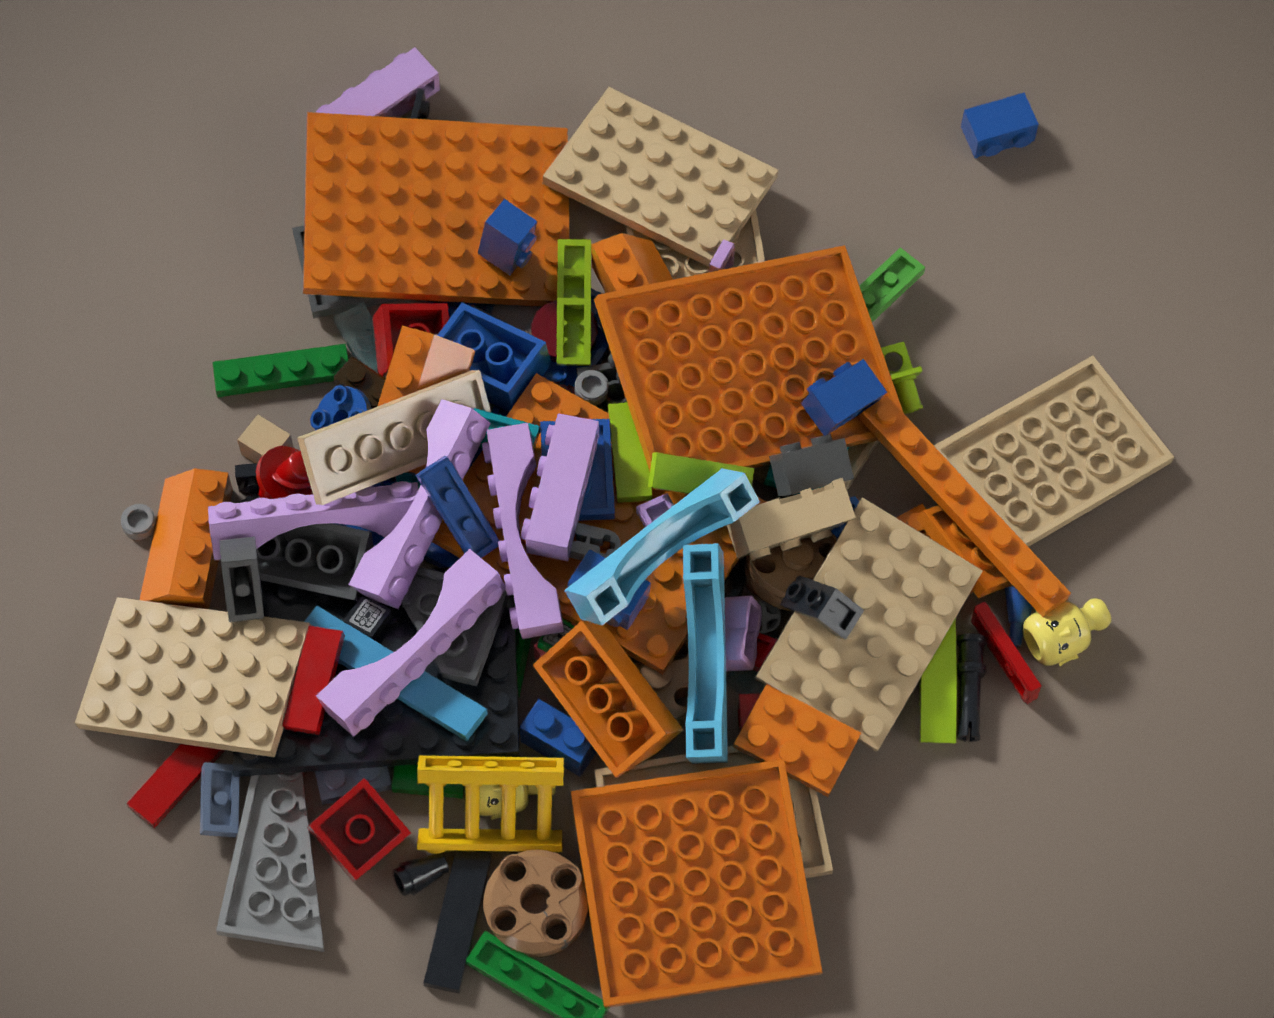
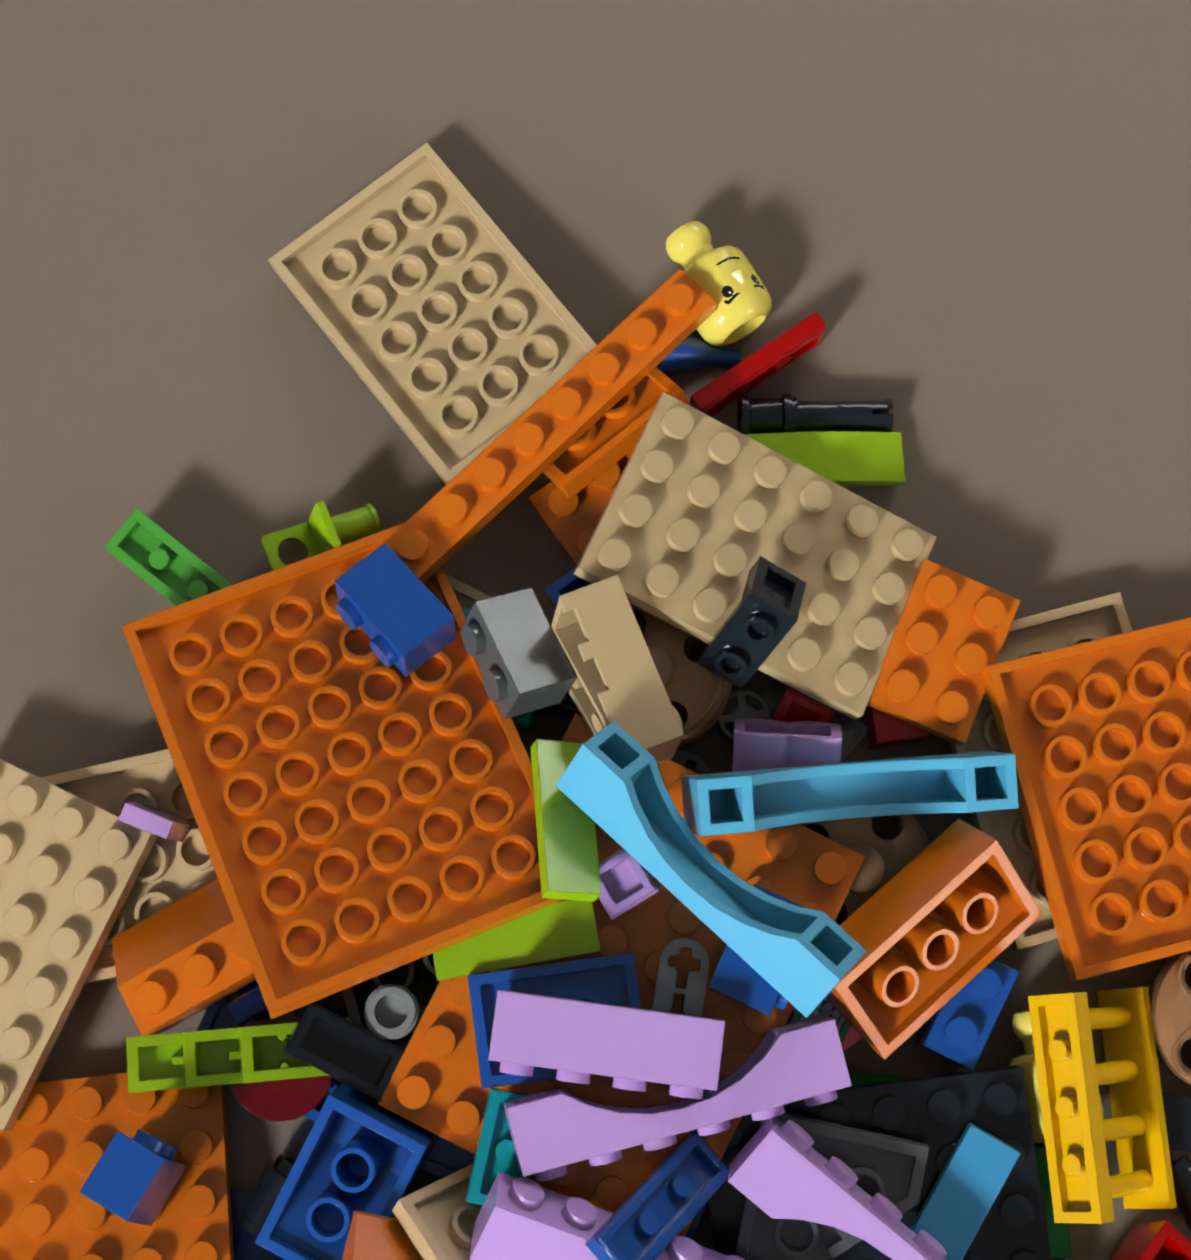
camera: 90 degrees left, 15 degrees up
(571, 355) = (344, 1050): none -> black tile

